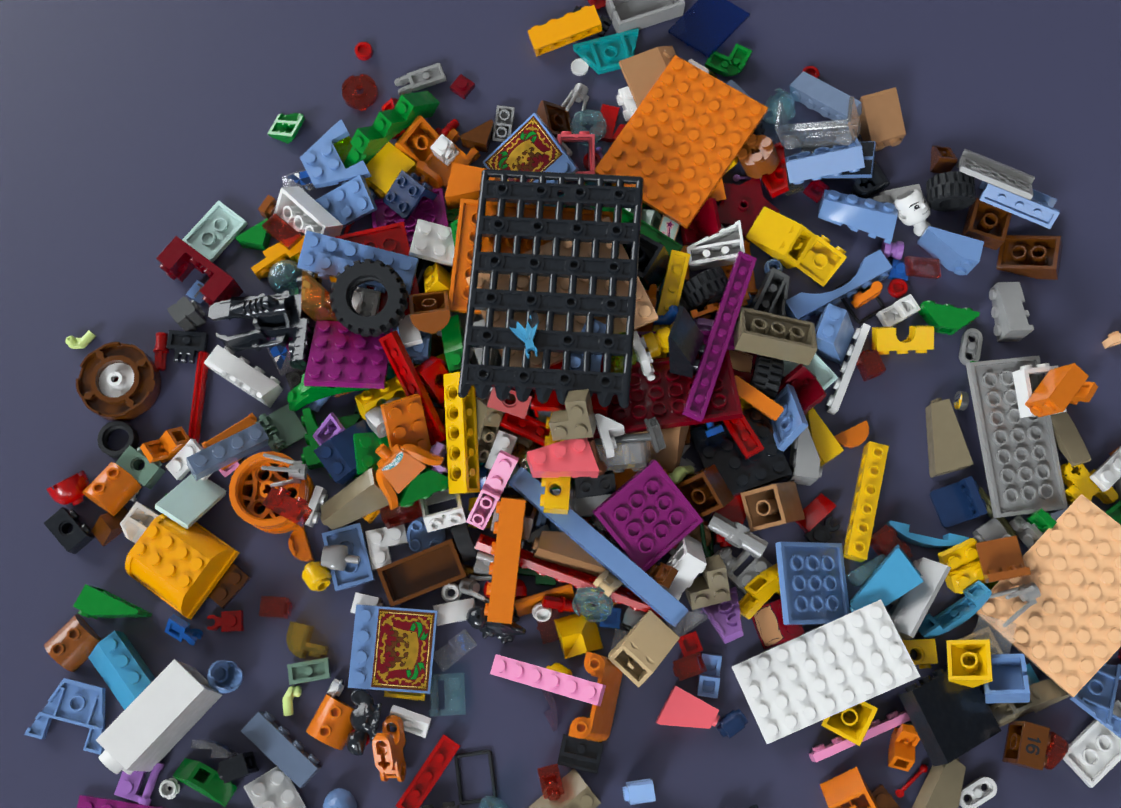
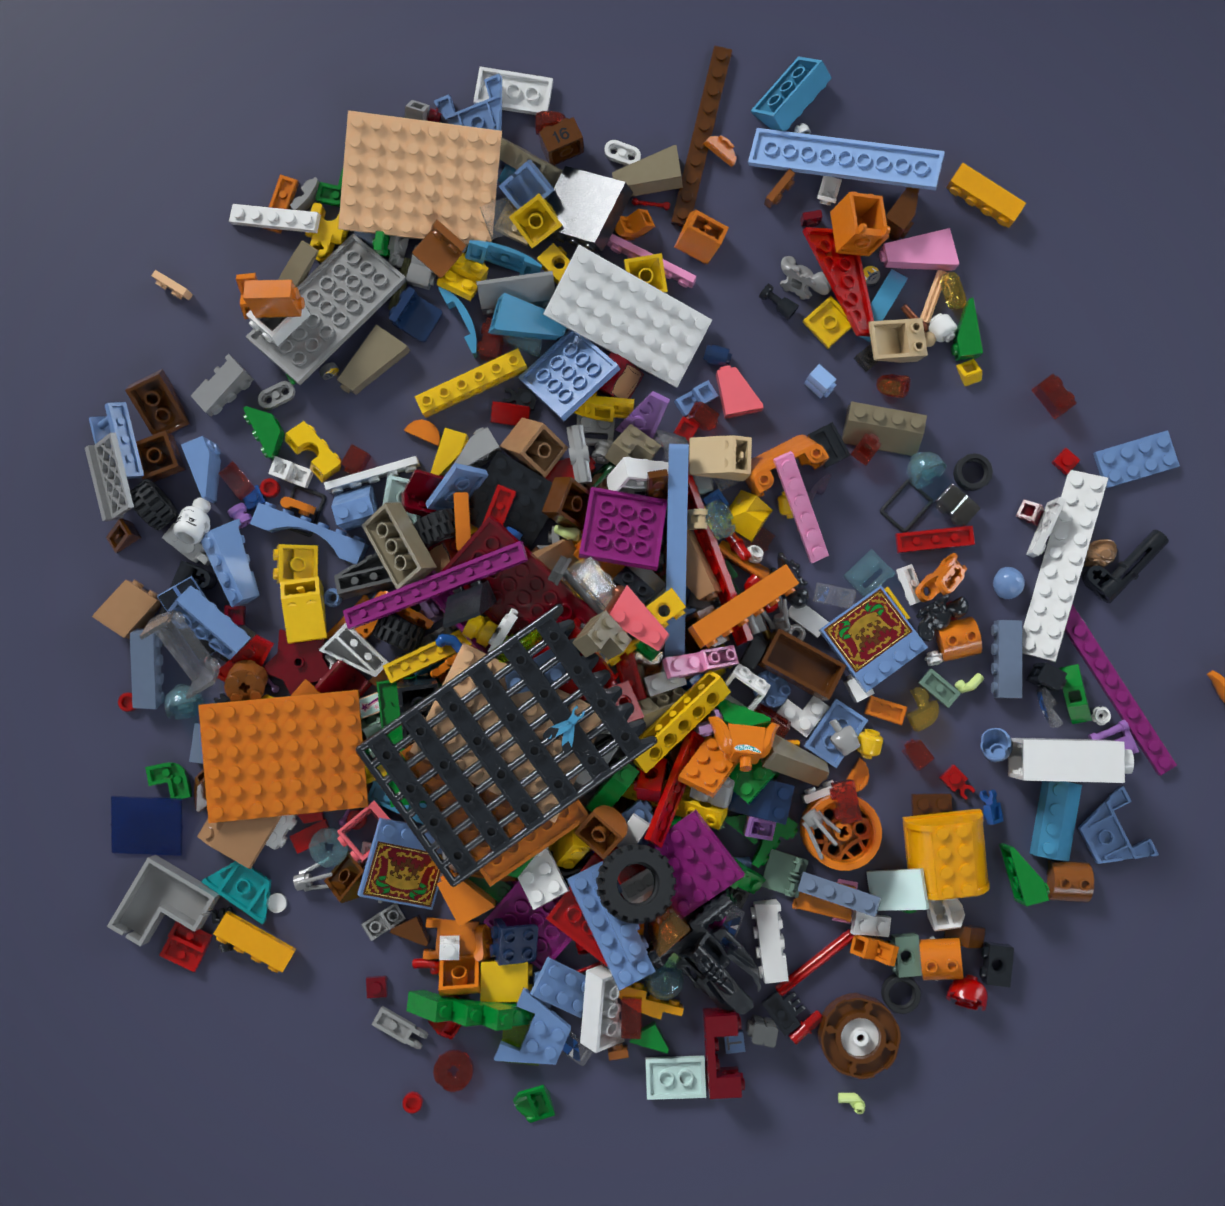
camera: 125 degrees left, 10 degrees up
(330, 612) = (885, 710): none -> orange plate
(608, 430) = (586, 607): white slope -> none
(1026, 593) = (450, 215): light grey plant -> none

